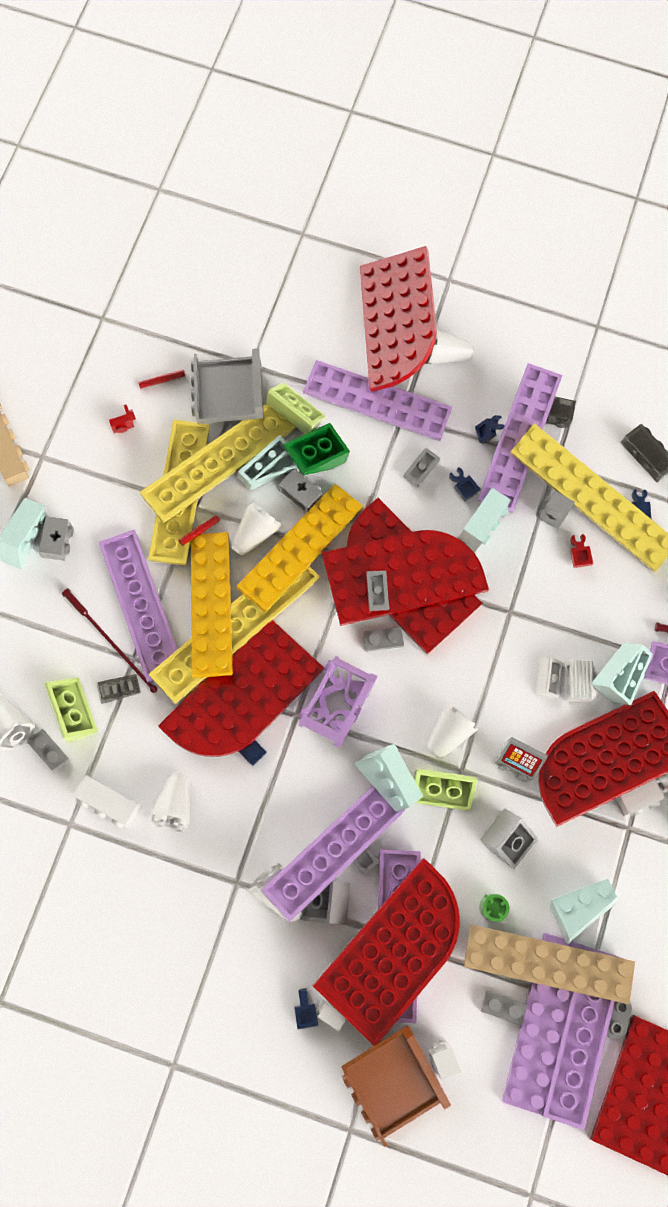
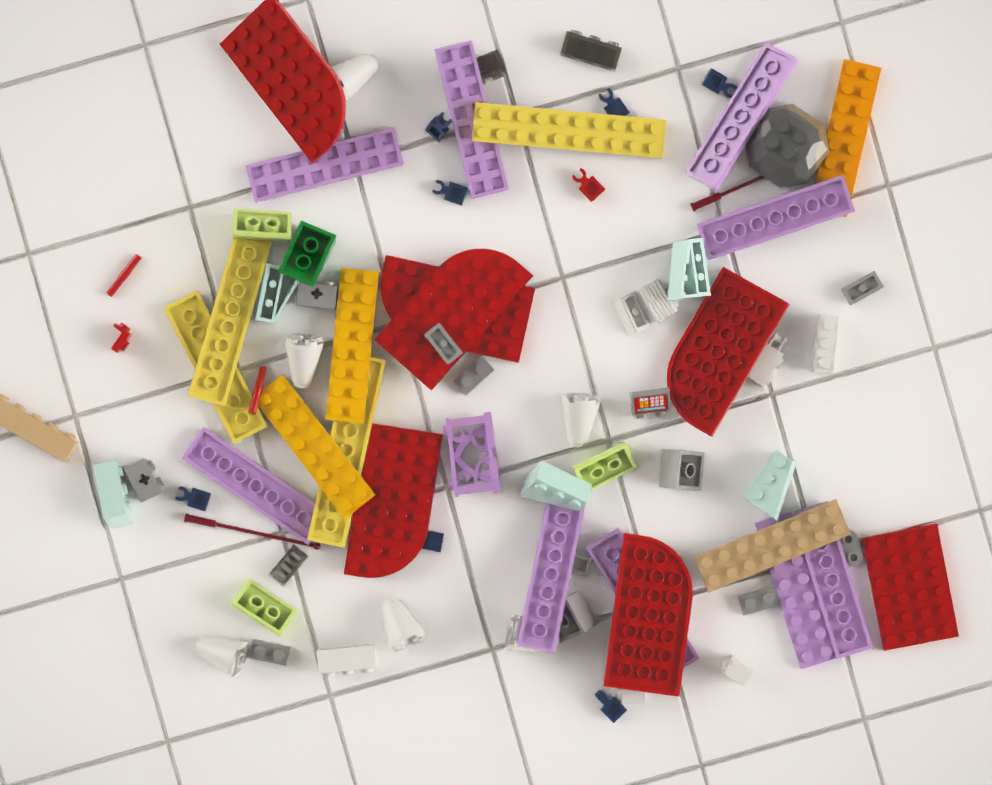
camera: 30 degrees left, 15 degrees up
(86, 582) = (196, 498): none -> dark blue plate
(227, 389) = (189, 247): light grey panel -> none
(393, 1083) = (710, 712): dark orange panel -> none
(421, 467) = (404, 201): light grey plate -> none
(485, 520) = (490, 217): light aqua wedge -> none
(494, 907) = (703, 531): bright green piece -> none
(555, 509) = (543, 164): light grey brick -> none

